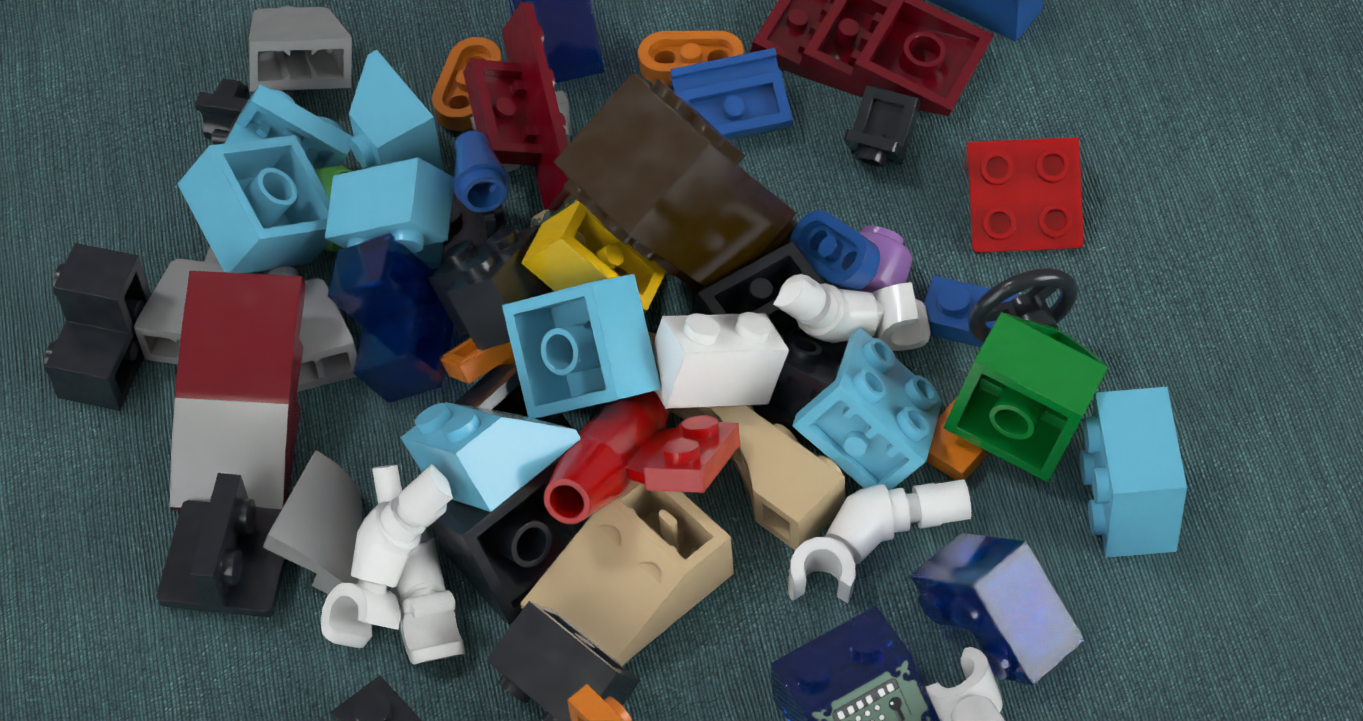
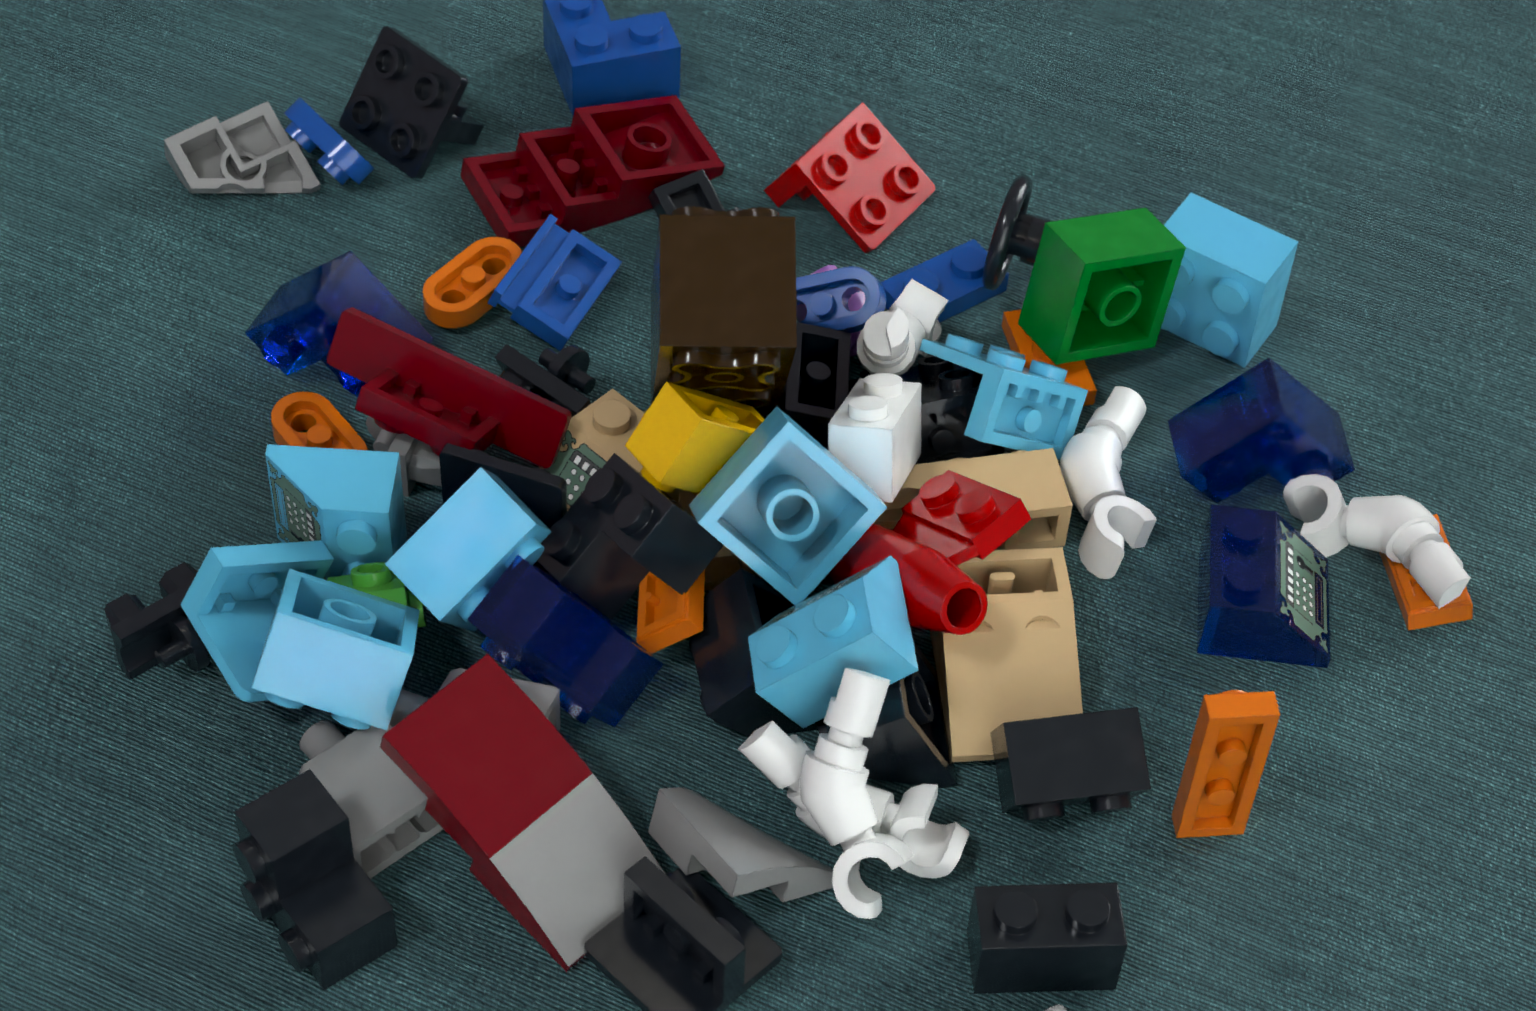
camera: 60 degrees left, 5 degrees down
(298, 49) = (145, 525): light grey torso -> none
(479, 175) = (522, 450): blue cone -> none

